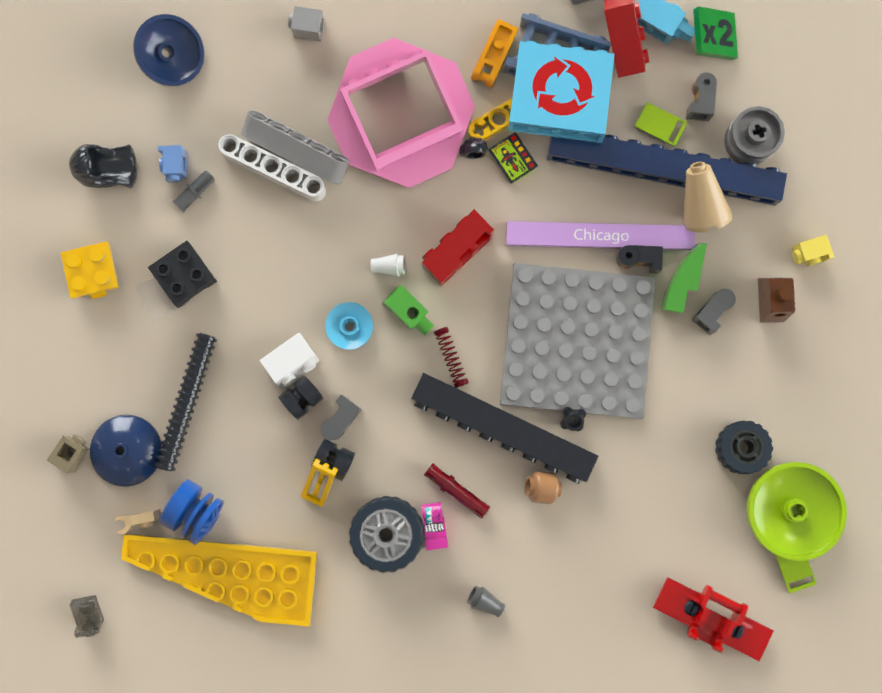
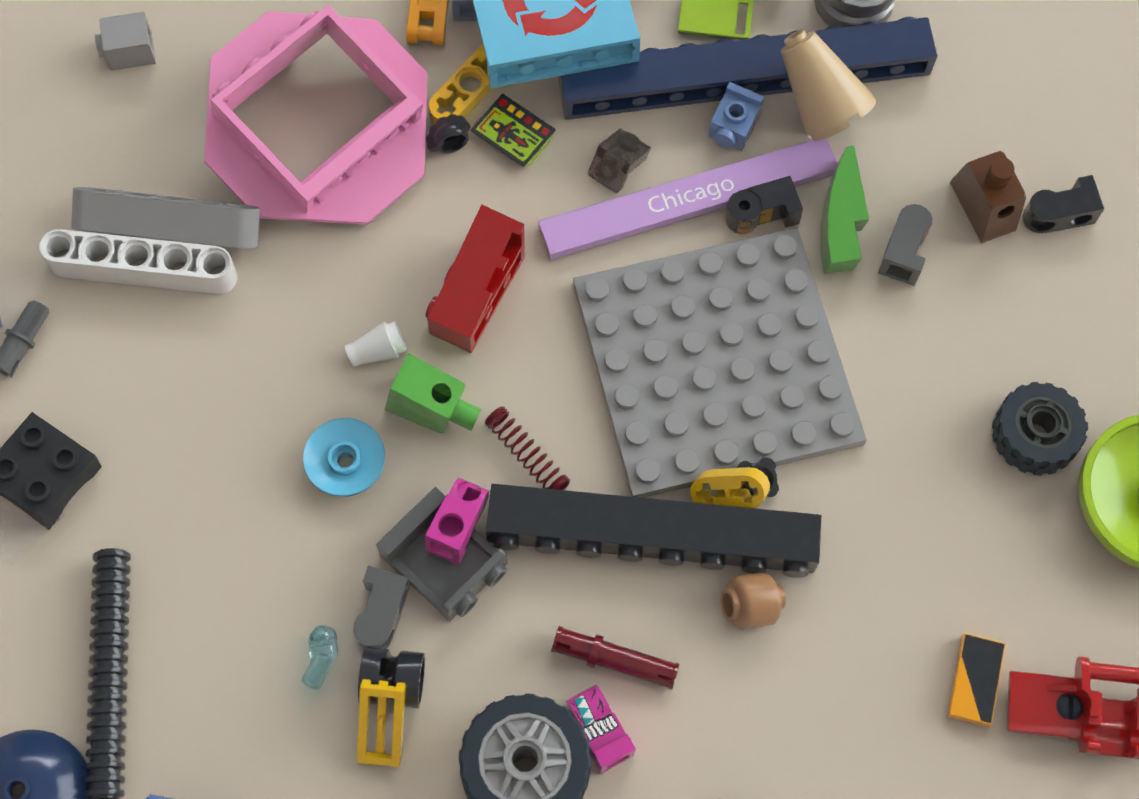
camera: 25 degrees left, 15 degrees down
(290, 361) = (264, 543): white brick -> none
(300, 397) = (307, 581): black wheel -> none
(301, 432) = (323, 652): none -> clear light blue arm
(384, 401) = (442, 583): none -> dark grey panel
(397, 385) = (456, 521): none -> dark pink leg
(554, 421) = (728, 483): none -> yellow beam
(567, 198) = (617, 158): none -> clear smoke bracket
(648, 573) = (976, 680): none -> black tile
(652, 189) = (735, 117): none -> medium blue brick
(811, 320) = (1064, 209): none -> black leg
(812, 251) = (1013, 113): light yellow brick -> none

